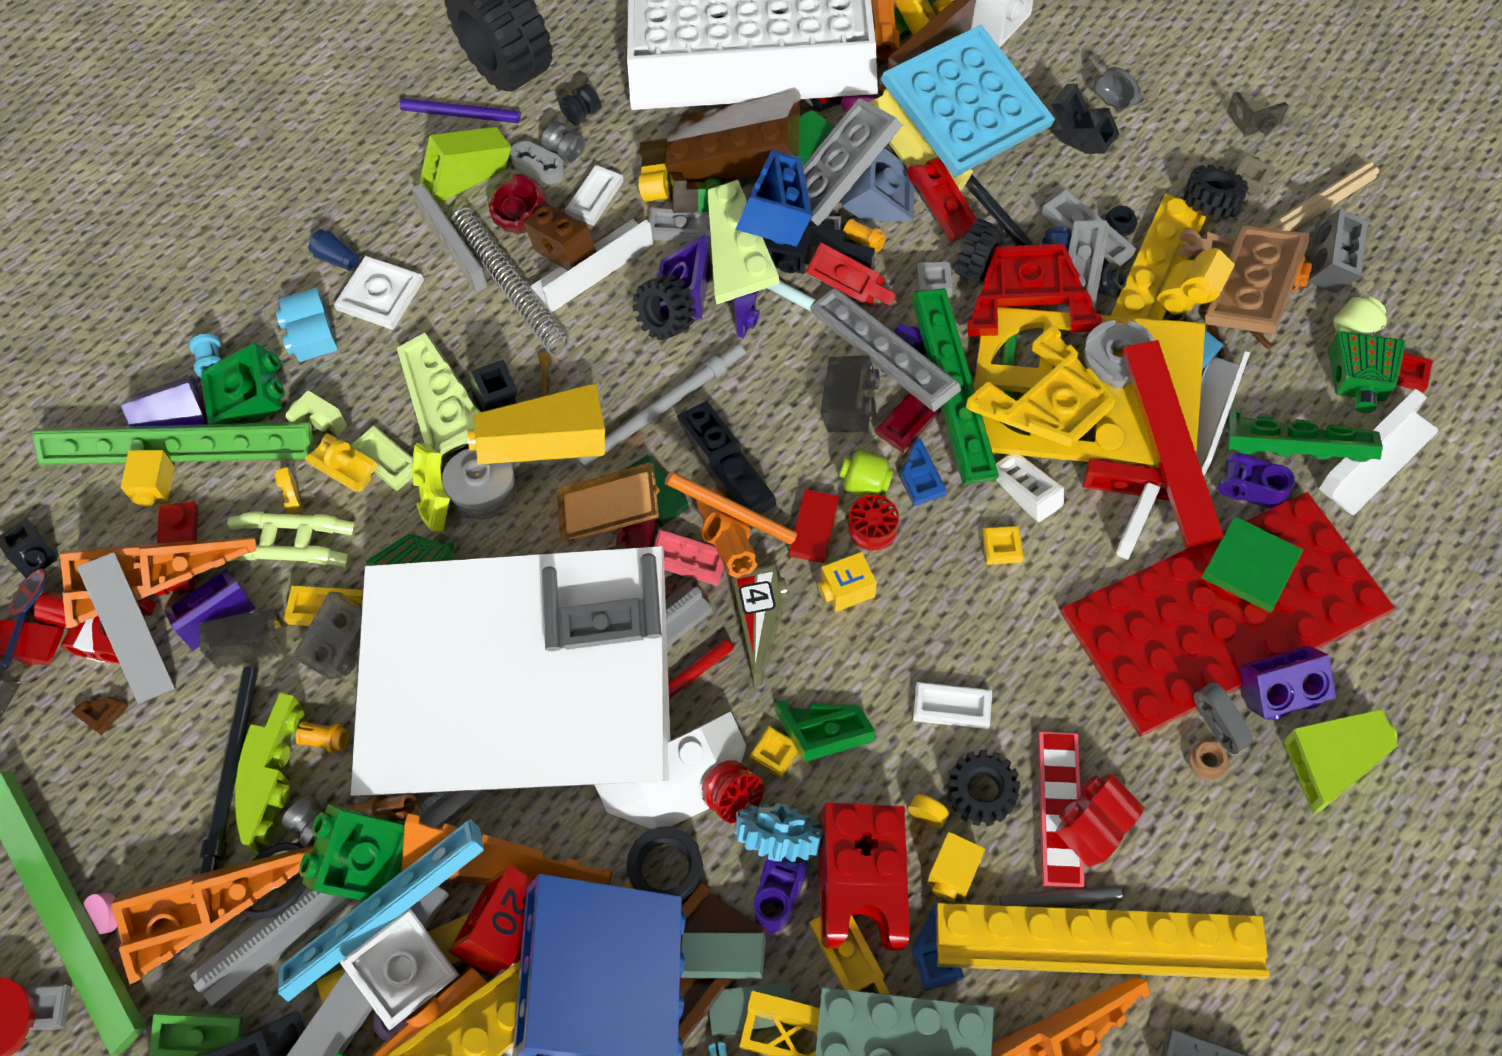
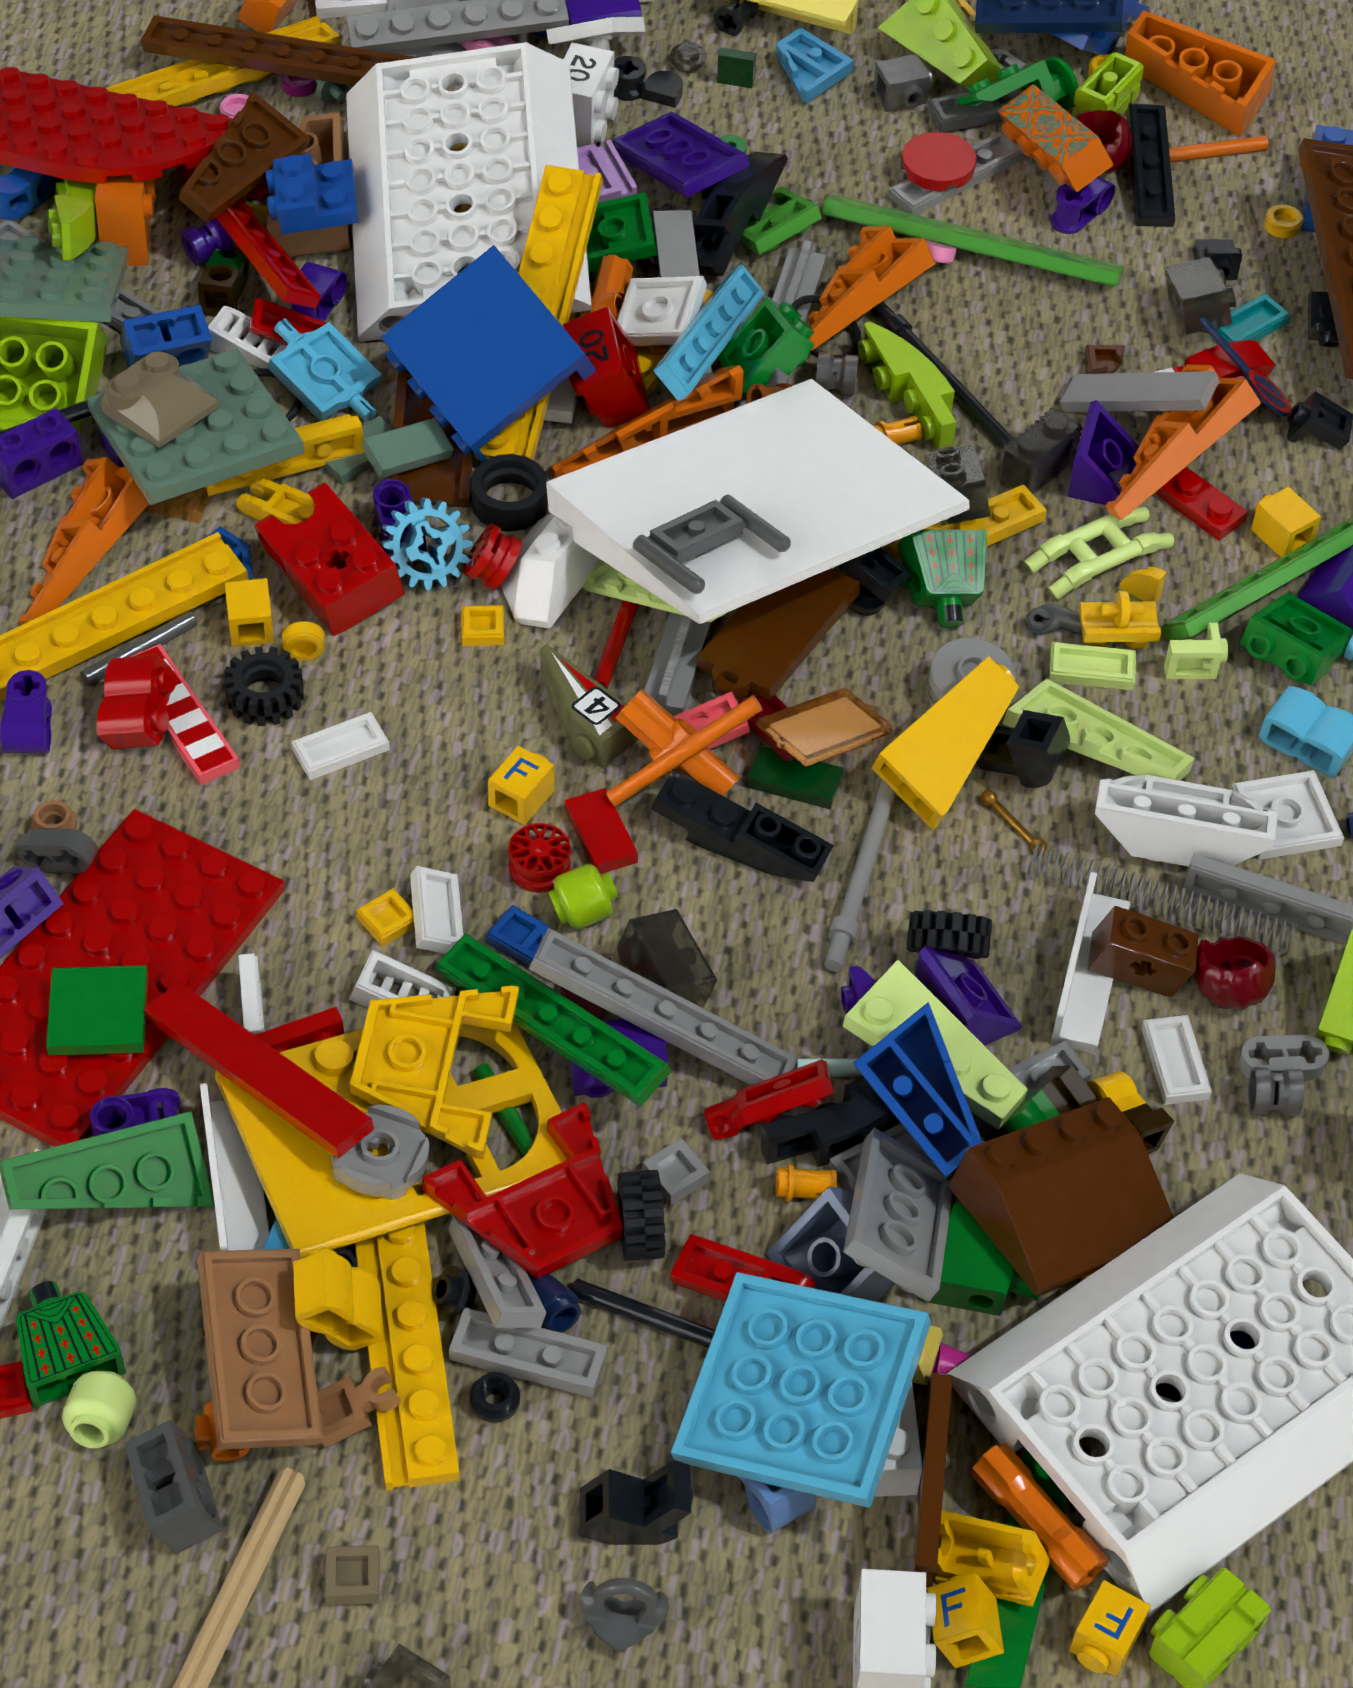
camera: 140 degrees right, 10 degrees down
(374, 508) = (1051, 618): none -> dark grey arm
(427, 475) = (1016, 650): neon yellow tile -> none
(445, 299) = (1178, 818): none -> white wedge
(580, 104) = (1310, 1155): black wheel -> none
(825, 728) = (450, 655): green wing -> none
(968, 525) = (436, 909): none -> white tile
(1191, 864) = (26, 715): none -> dark purple piece
(1215, 191) = (388, 1466): black tyre -> none

